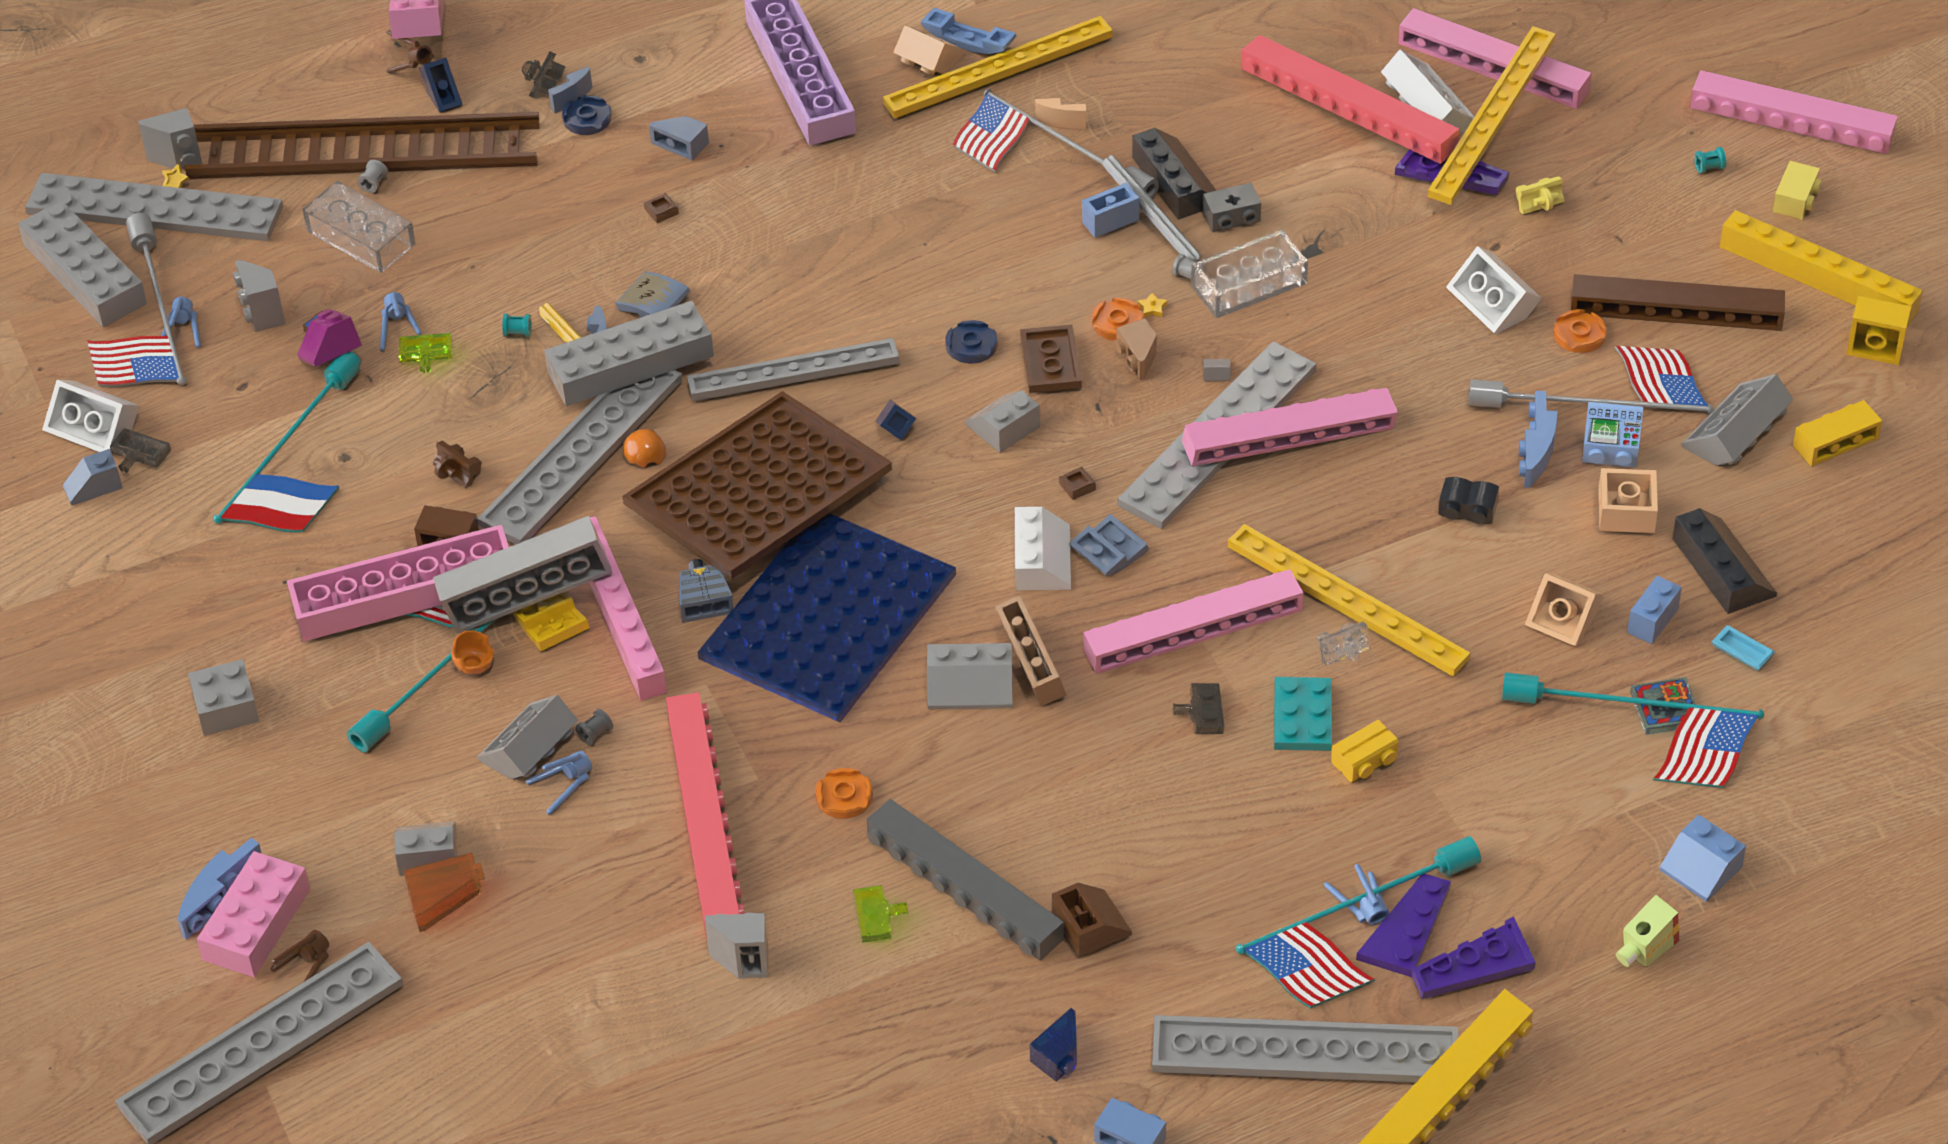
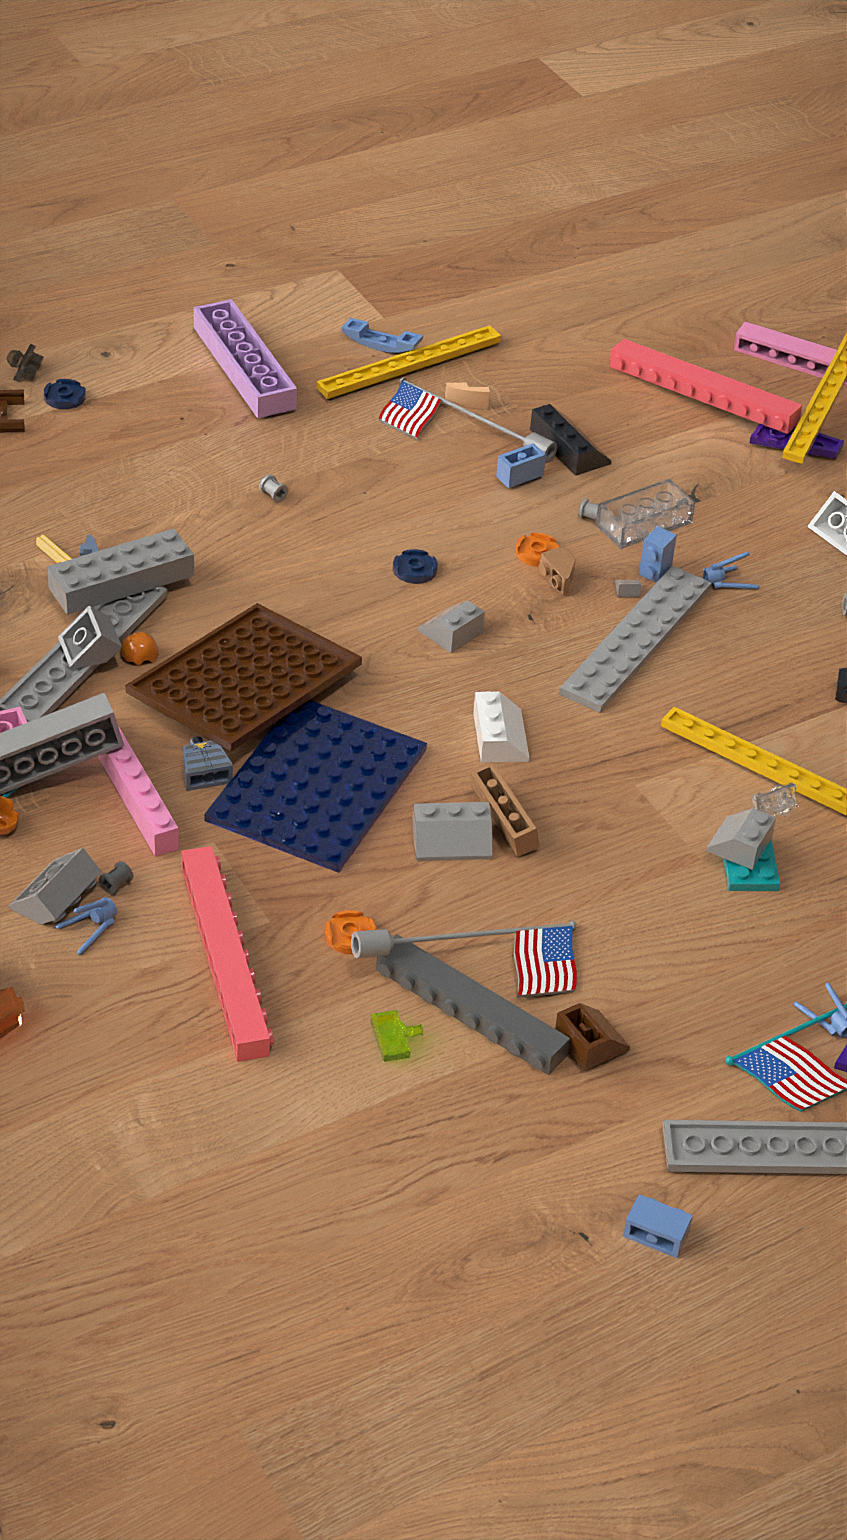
camera: 10 degrees left, 5 degrees down
(516, 325) = (17, 551): teal bush -> none
(551, 621) = (68, 789): yellow slope -> none
(577, 85) = (54, 370): sand blue slope -> none
(587, 439) = (89, 639): none -> light grey slope
(652, 294) = (133, 526): slope -> none
(661, 208) = (135, 463): reddish brown tile -> none
(680, 135) = (146, 409): sand blue slope -> none
(739, 943) = (271, 1063): light grey slope -> none
(793, 369) = (263, 586): light grey plate -> none
(817, 240) = (271, 486): none -> light grey bush
(895, 419) = (359, 625): dark blue panel -> none
(927, 50) = (349, 348): light nougat slope -> none
(1049, 823) = (540, 953): none -> flag
(1050, 358) = (486, 578): reddish brown plate -> none
(1056, 1047) = (578, 1151): clear blue slope -> none
(1077, 483) = (522, 676): reddish brown tile -> none
(1109, 545) = (558, 725): sand blue slope -> none
(1152, 210) = (555, 465): light grey axle -> none
(1152, 305) = (565, 539): yellow piece -> none
(1192, 621) = (641, 785): bright pink brick -> none
(1204, 708) = (662, 857): clear smoke plate -> none
(1231, 207) = (620, 465): dark grey brick -> none
(1253, 328) = (657, 554): none -> medium blue brick
(1289, 426) = (699, 629): bright pink brick -> none
(1295, 689) = (743, 837): none -> light grey slope
(1322, 352) = (716, 574): none -> medium blue plant
(1365, 751) = (811, 890): yellow brick -> none
(1425, 90) = (753, 373): white slope -> none

